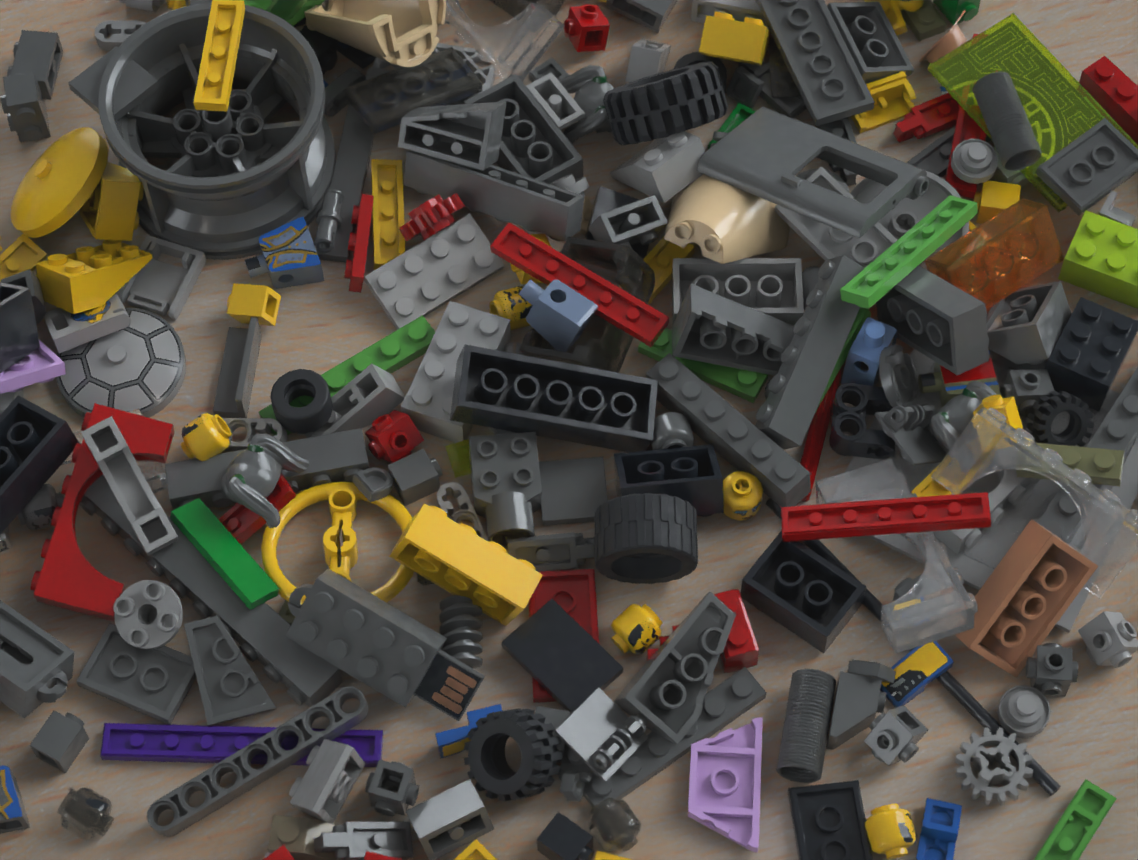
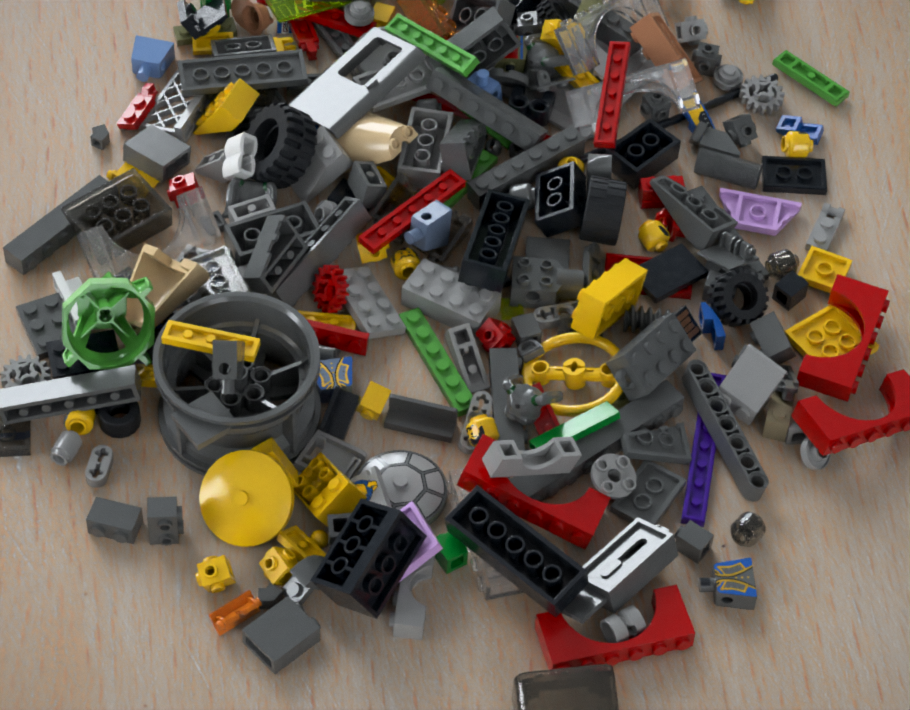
camera: 85 degrees left, 10 degrees down
(169, 69) = (229, 353): none -> dark grey torso
(223, 264) = (339, 413): none -> black panel
(296, 384) = (466, 365): black tyre -> none
(641, 63) = (240, 156): none -> white brick
(734, 533) = (599, 165): none -> dark grey piece

